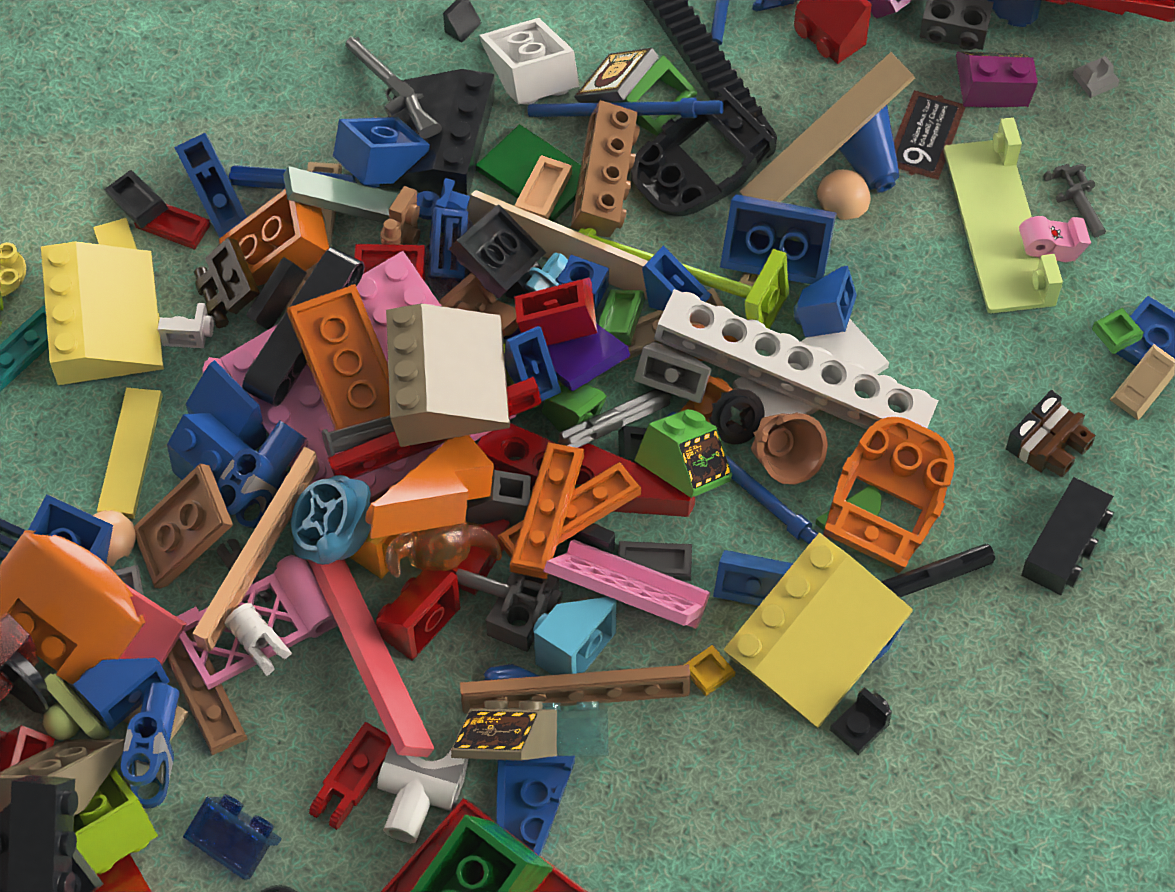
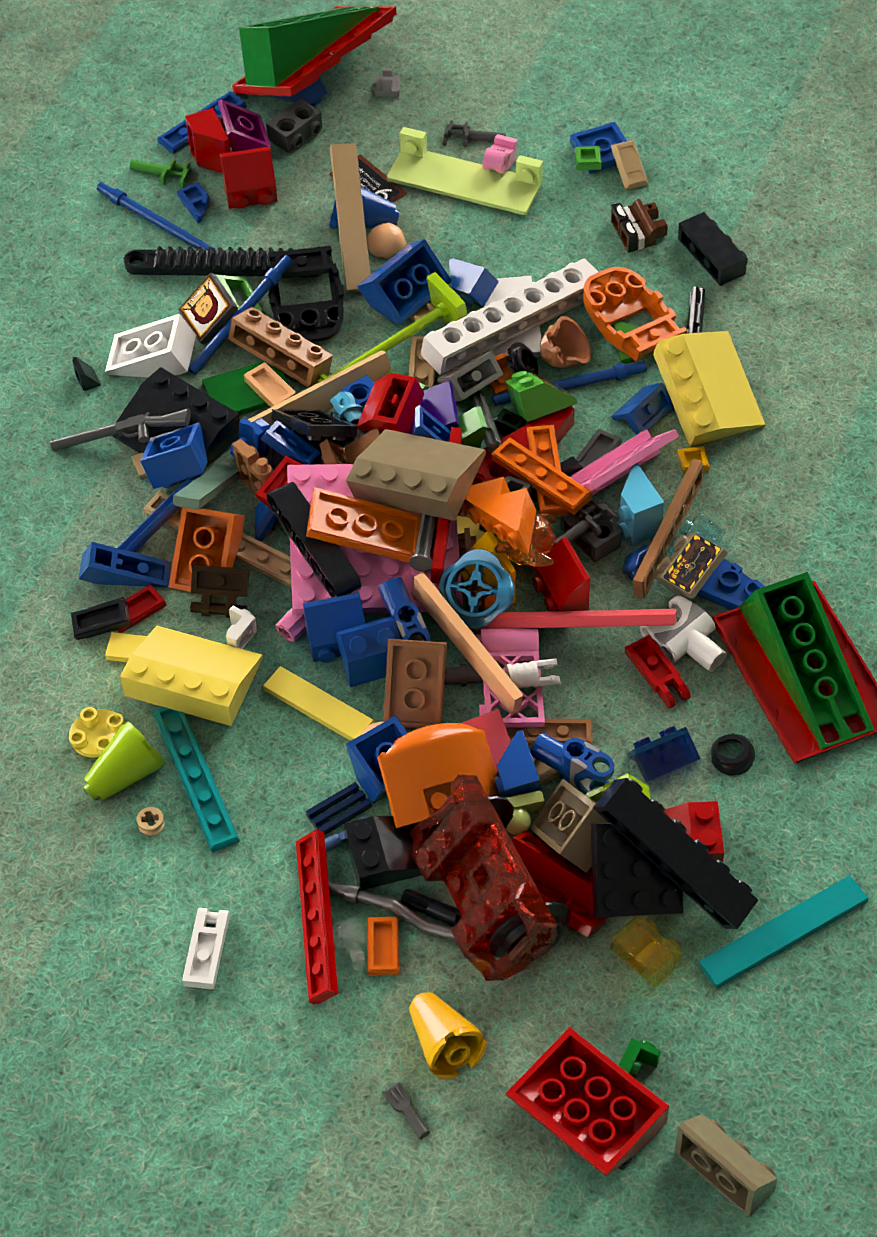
camera: 60 degrees left, 5 degrees down
(276, 293) = (252, 562): black tile -> none
(666, 273) = (402, 350): blue slope -> none
(863, 721) = (775, 399): black bracket -> none
(996, 79) = (355, 124): magenta slope -> none

